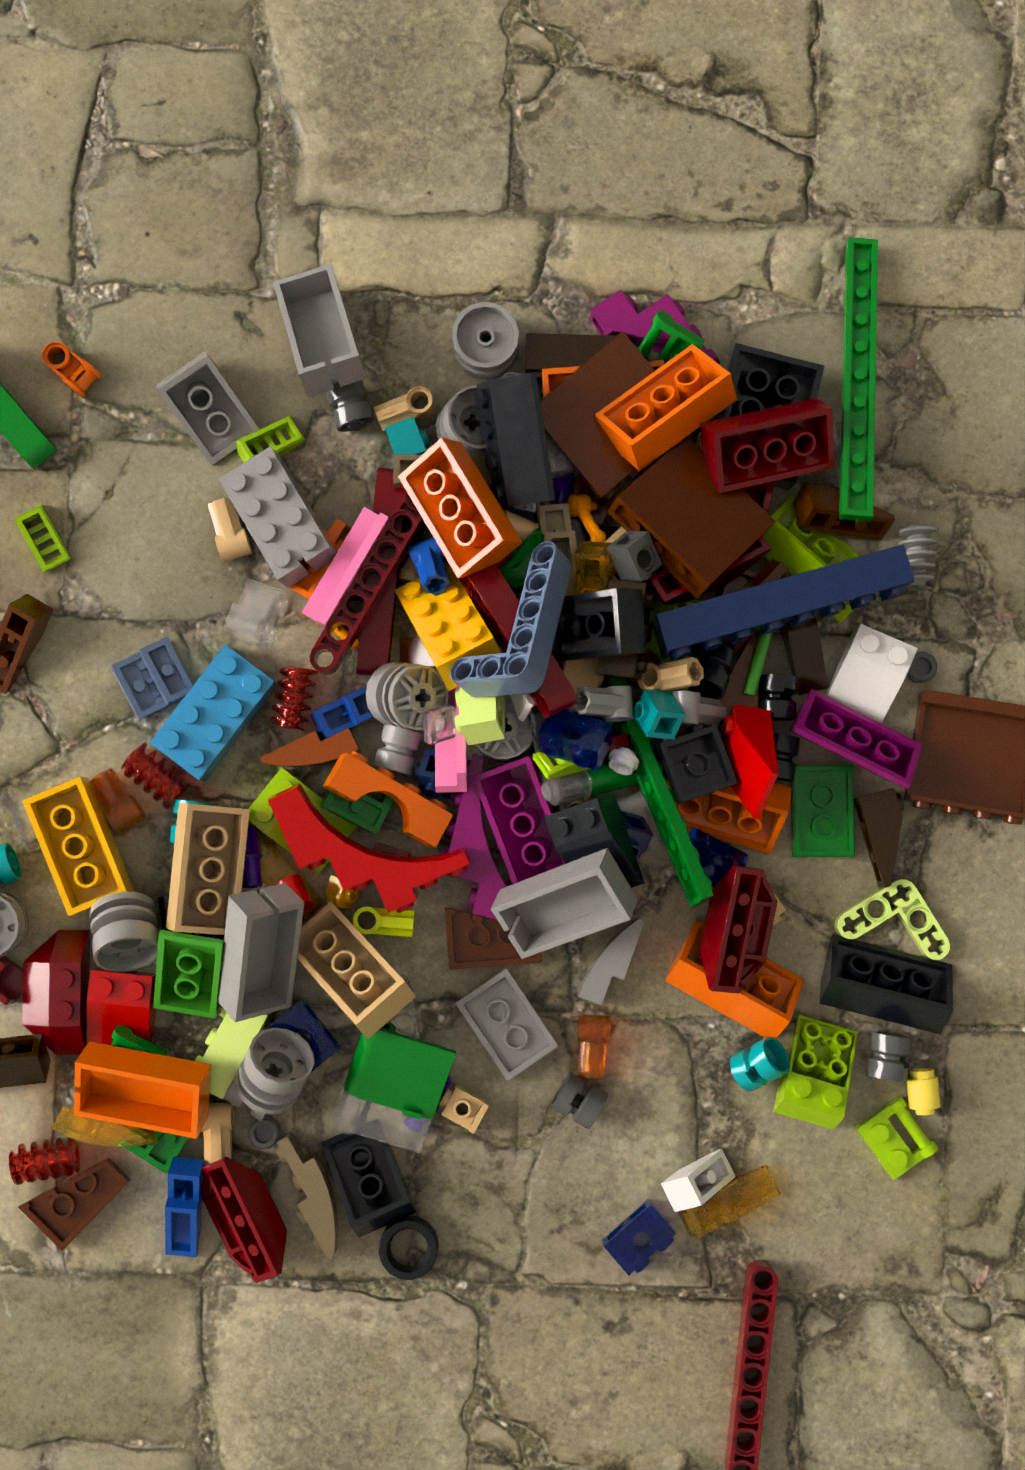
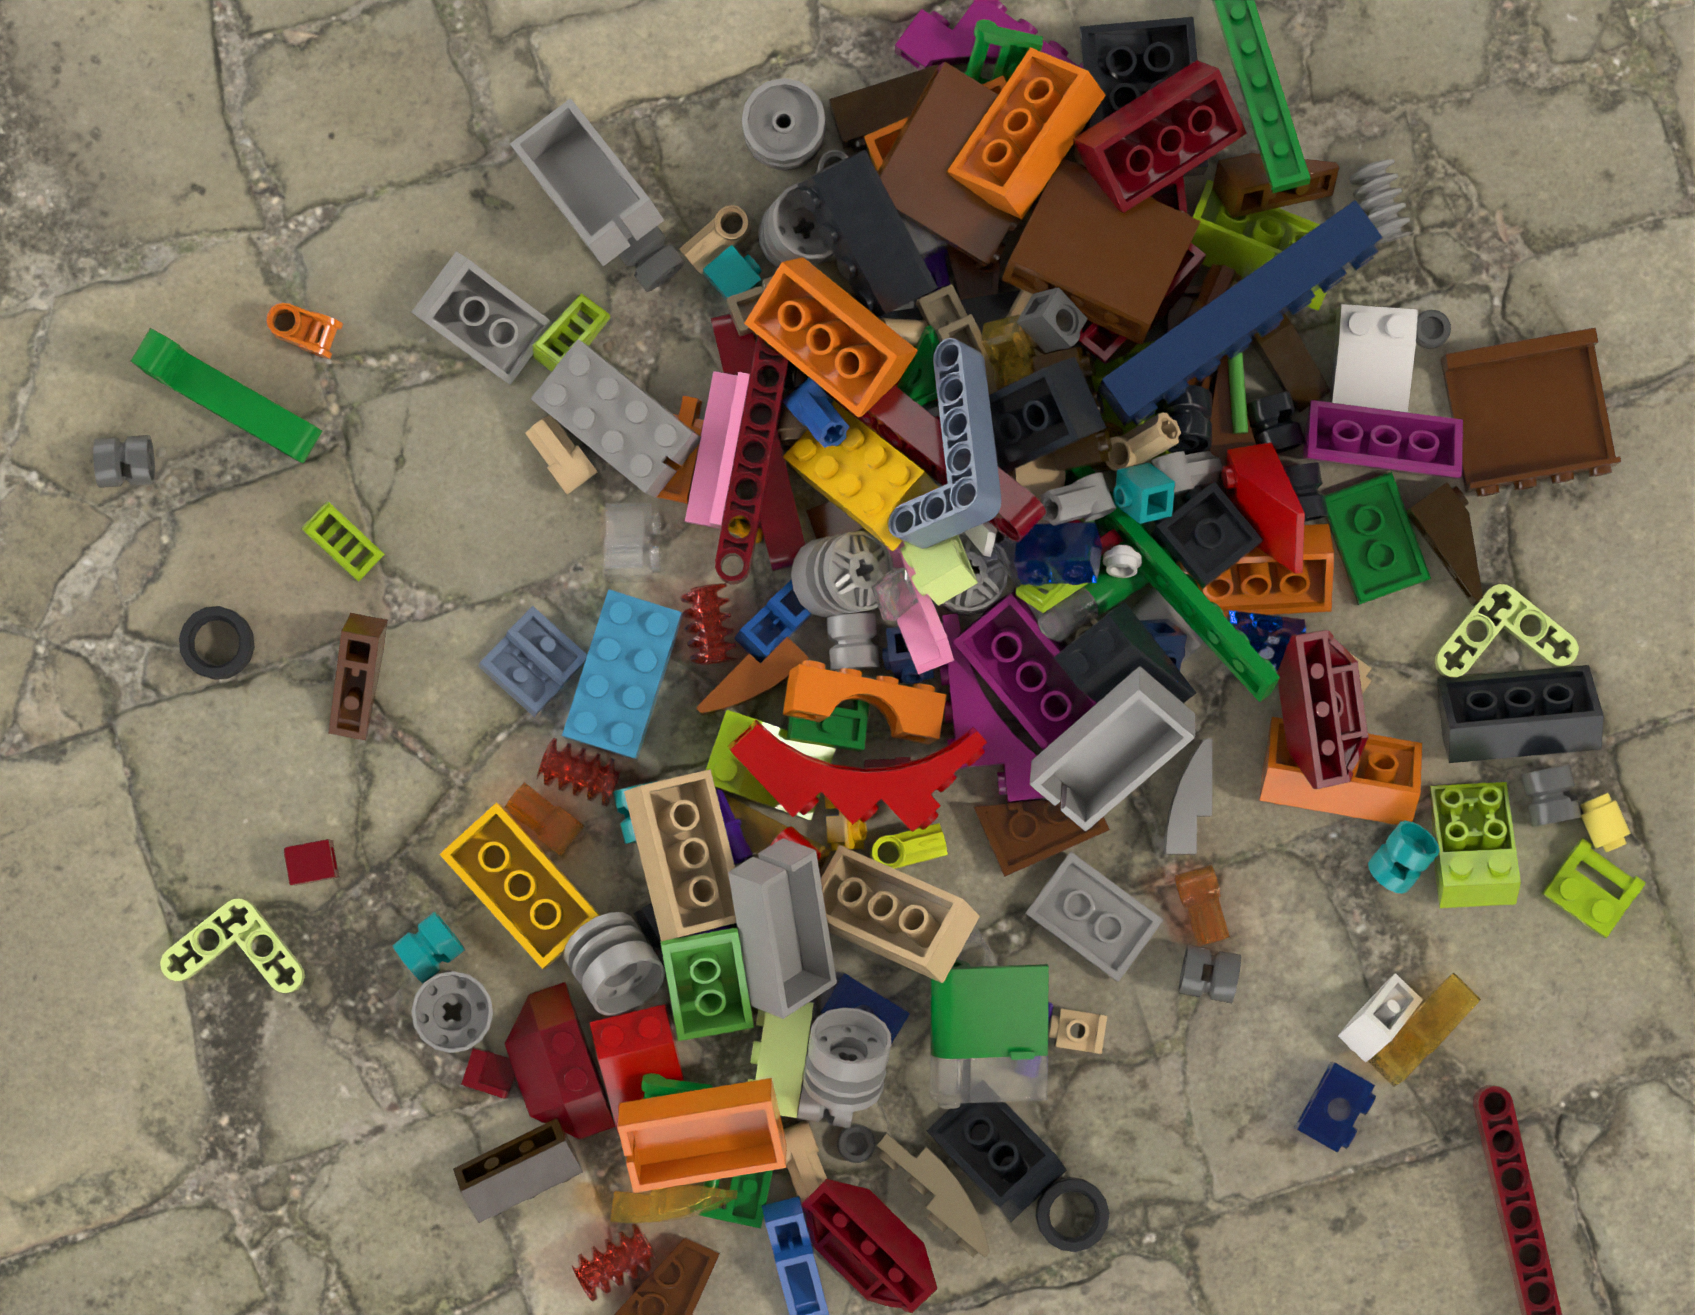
camera: 15 degrees left, 0 degrees up
(581, 507) = (967, 282): light orange piece -> none

